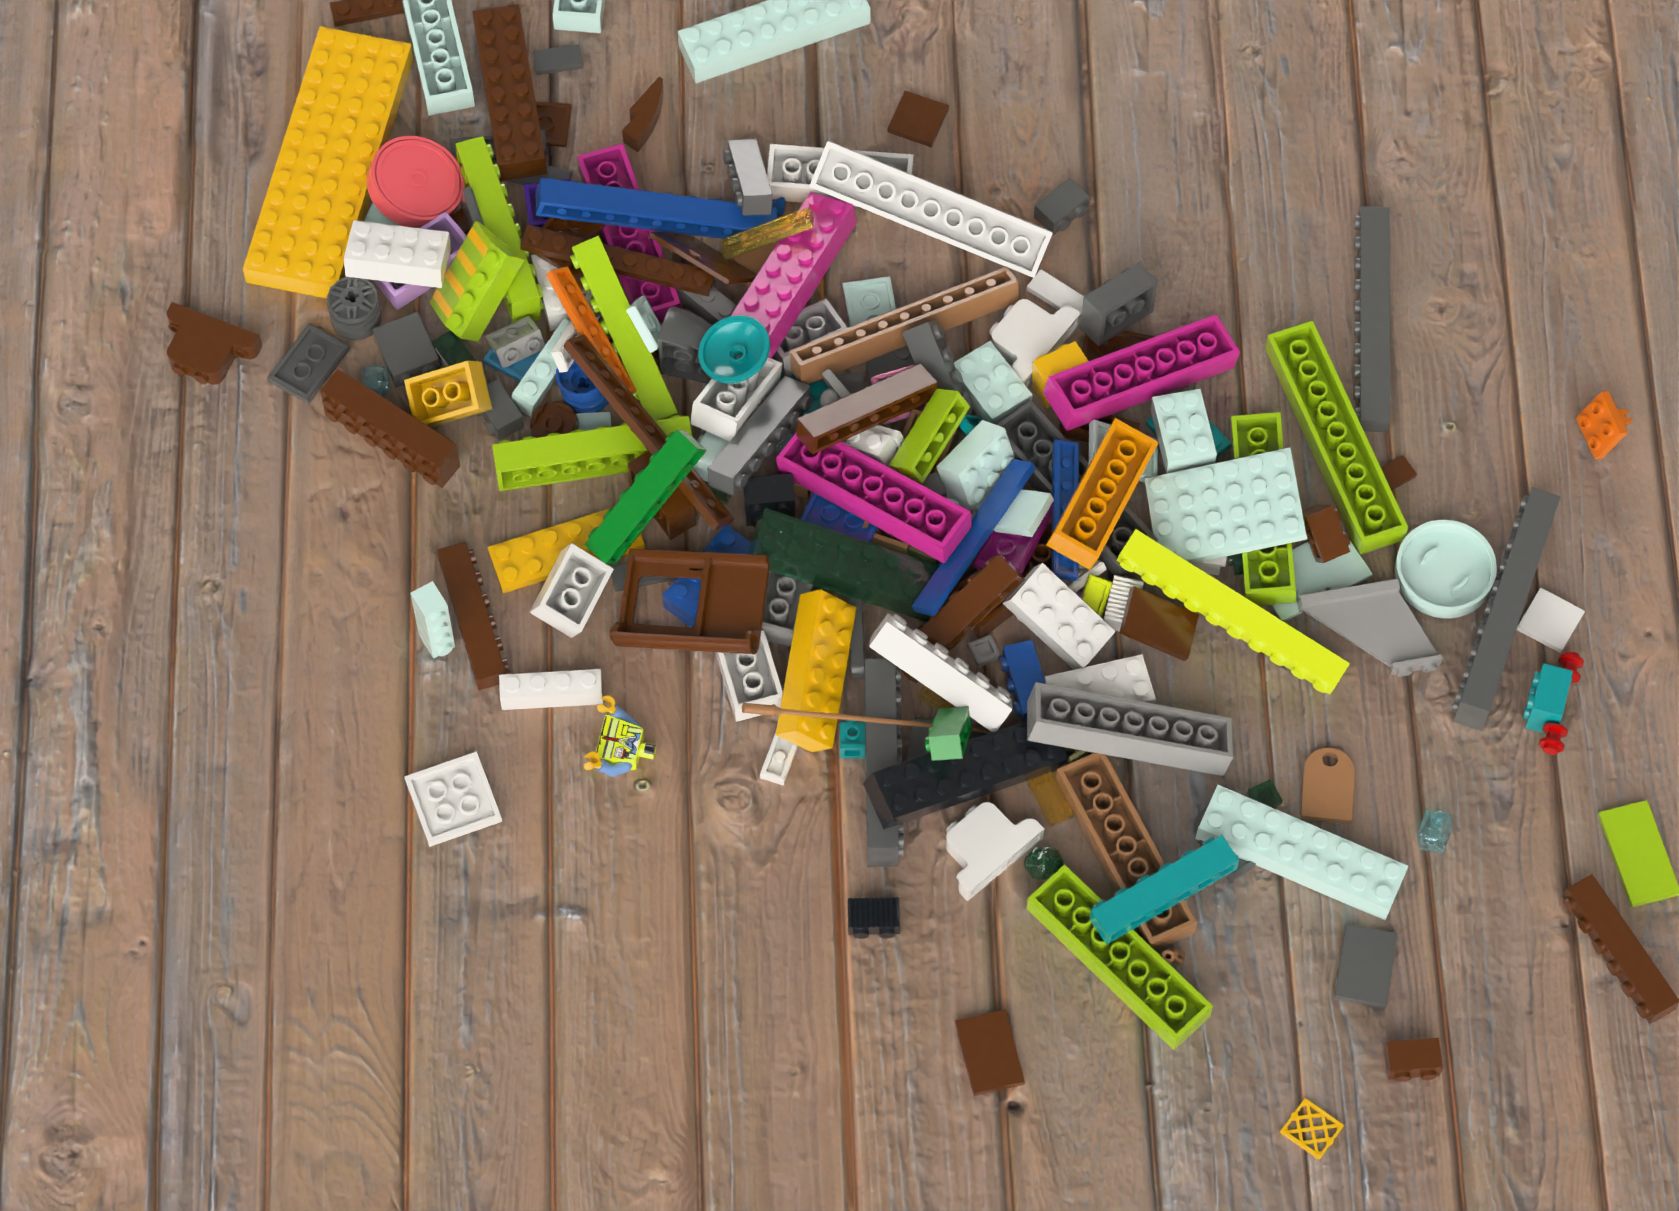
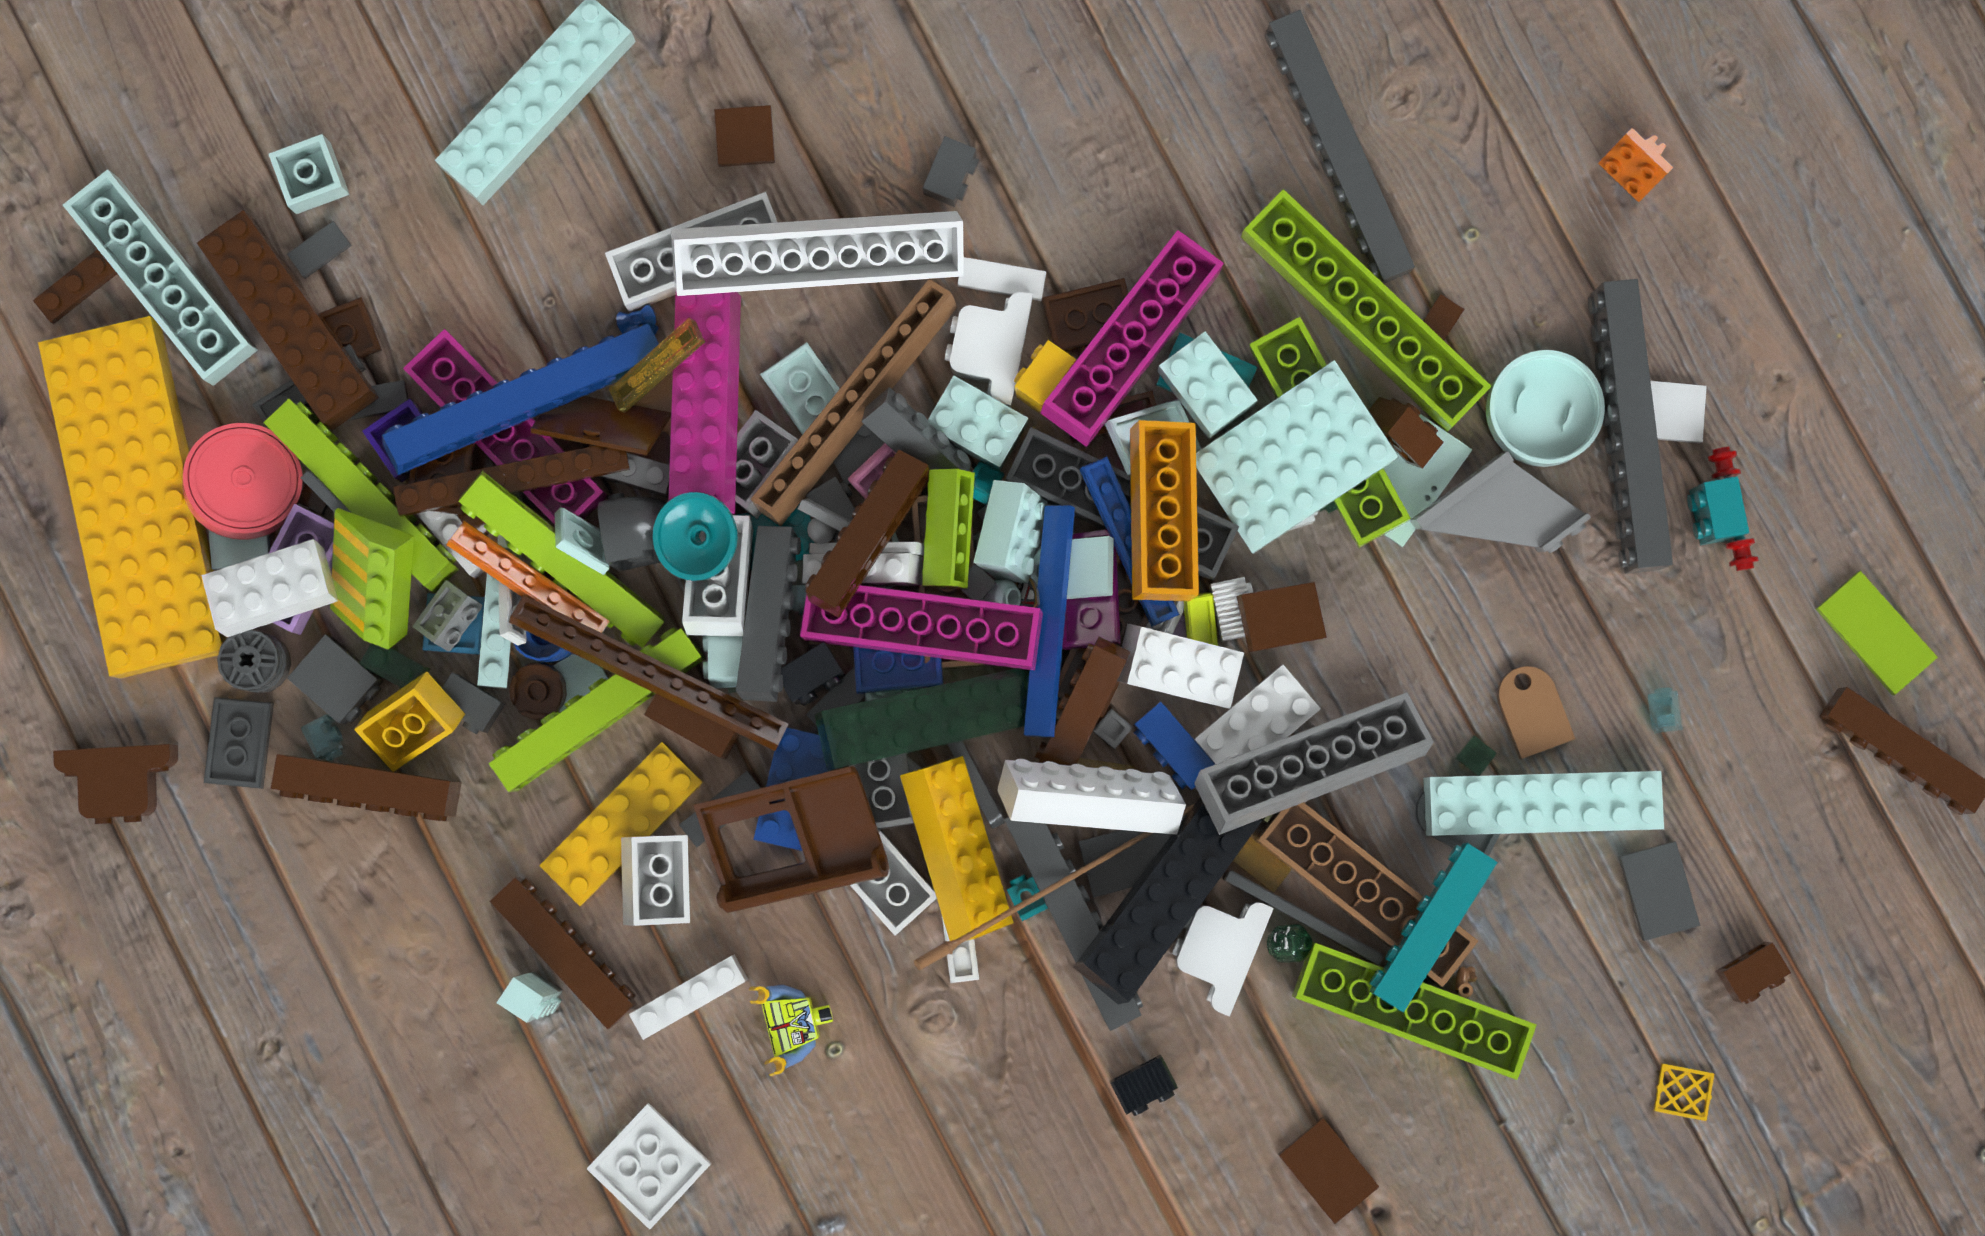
camera: 25 degrees left, 20 degrees up
(644, 116) = (449, 275): reddish brown slope -> none
(645, 497) = (684, 749): green brick -> none
(748, 177) = (601, 303): brick -> none
(949, 733) = (1138, 872): green brick -> none
(1058, 841) = (1303, 917): none -> dark grey tile
(1118, 304) = (1068, 266): dark grey brick -> none
(1232, 612) = (1353, 571): neon yellow brick -> none

